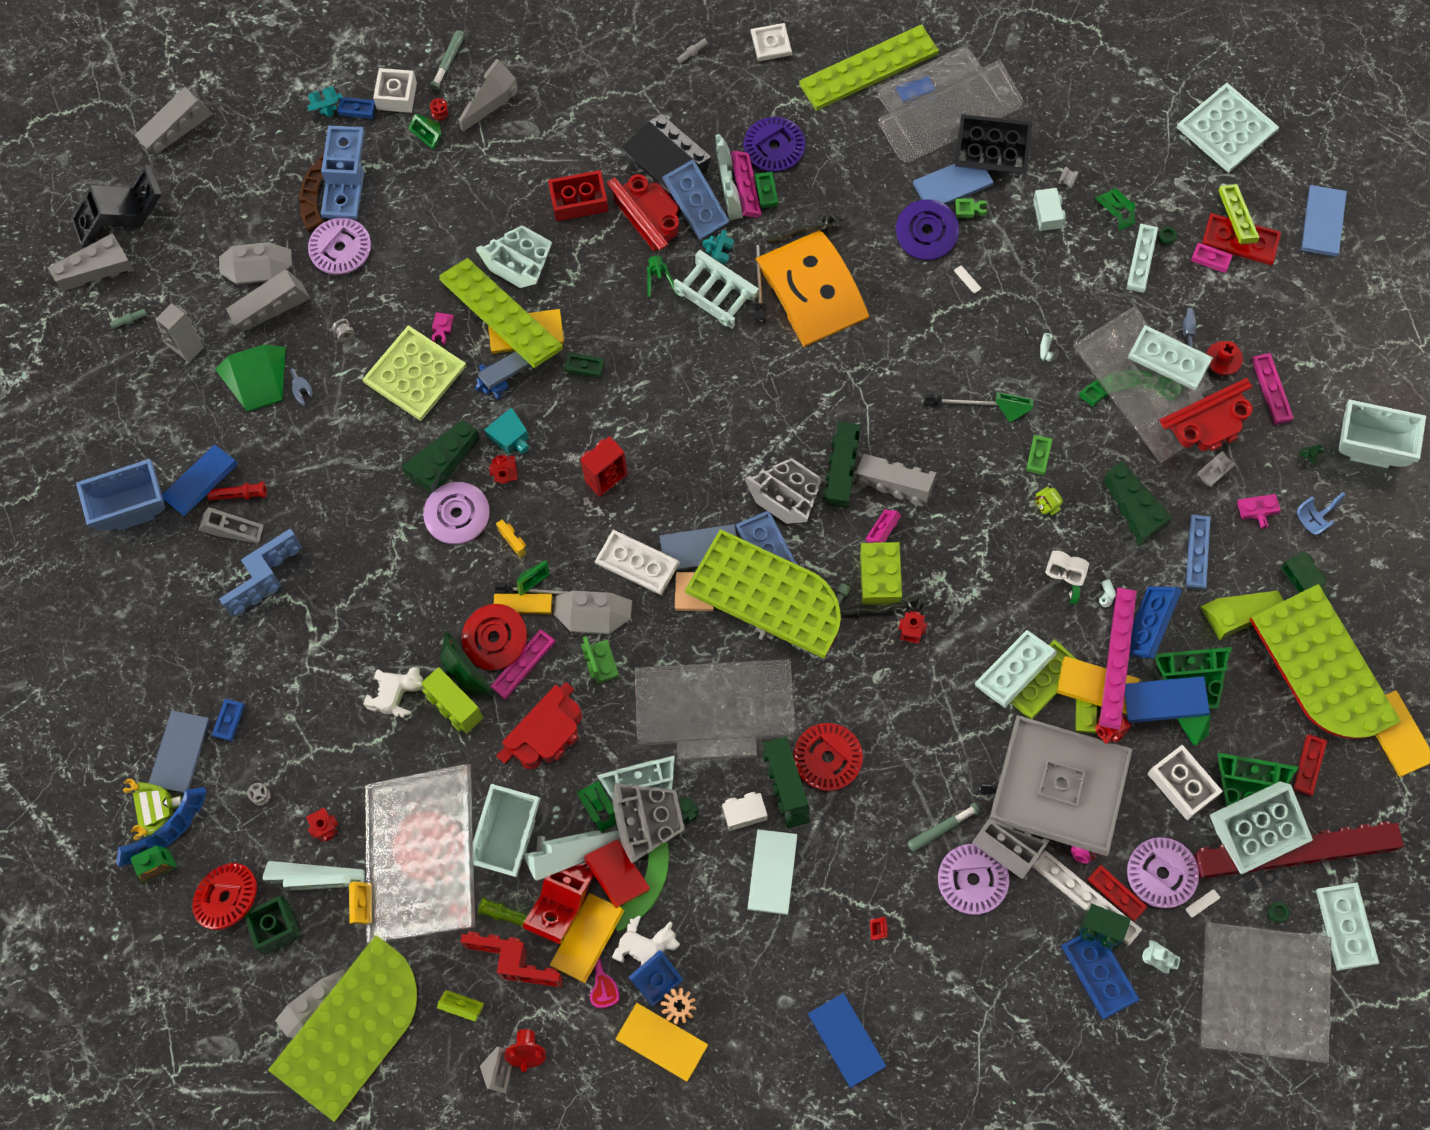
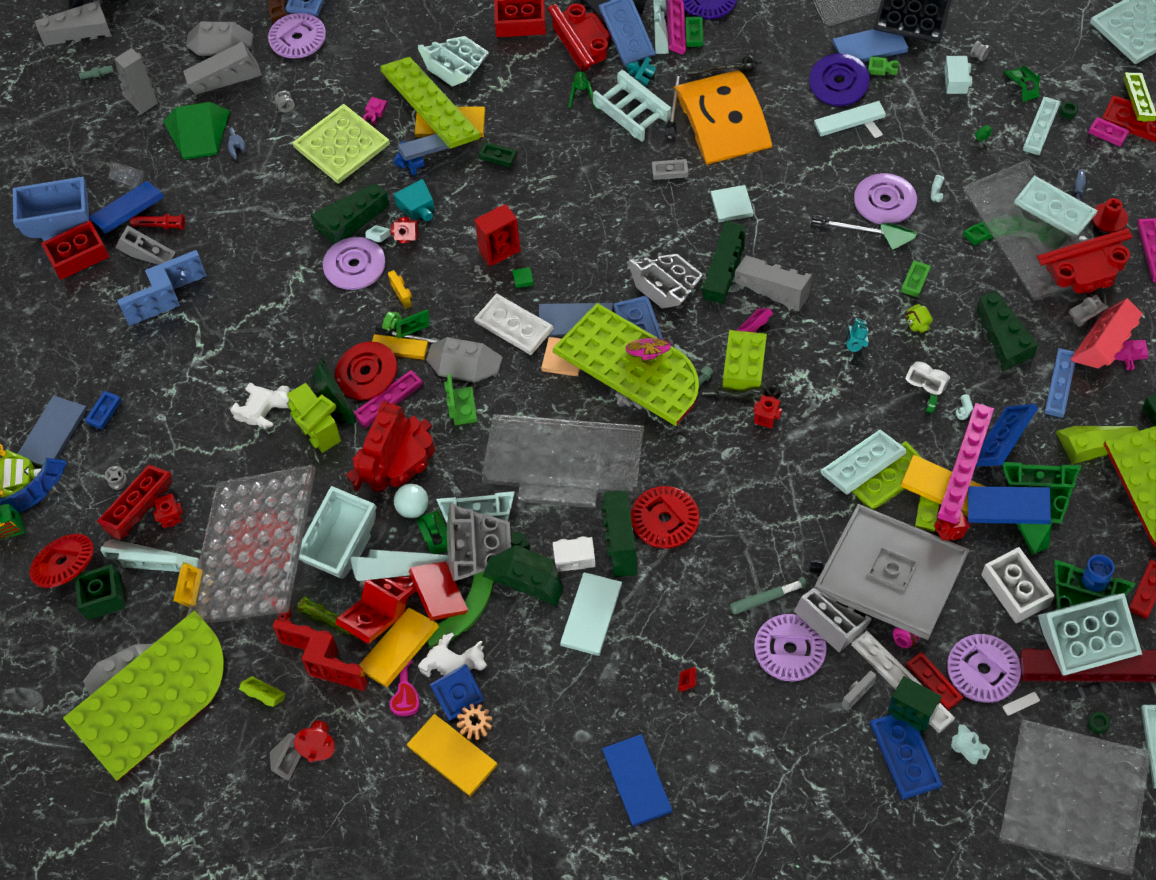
camera: 10 degrees right, 10 degrees down
(156, 539) = (75, 250): none -> red brick
(190, 440) = (125, 174): none -> clear plate
(286, 820) = (135, 501): none -> red slope
(456, 702) = (315, 413): none -> lime tile
(475, 476) = (378, 233): none -> light aqua plate
(511, 577) = (390, 320): none -> bright green plate
(528, 745) = (381, 445): none -> red brick
(570, 778) = (411, 501): none -> light aqua piece
(636, 506) = (523, 277): none -> green tile
(701, 841) = (526, 573): none -> dark green wedge
(768, 359) = (670, 169): none -> light grey plate
(783, 577) = (648, 348): none -> shield
(838, 391) = (731, 203): none -> light aqua tile
(944, 274) = (849, 118): none -> light aqua tile
(990, 528) = (857, 335): none -> teal hips
(999, 380) = (889, 212): none -> lavender piece
(1046, 914) = (858, 689): none -> light grey plate
(1085, 276) = (983, 133): none -> green tile
(1238, 497) = (1108, 335): none -> coral slope
(1261, 763) = (1097, 573): none -> blue wheel

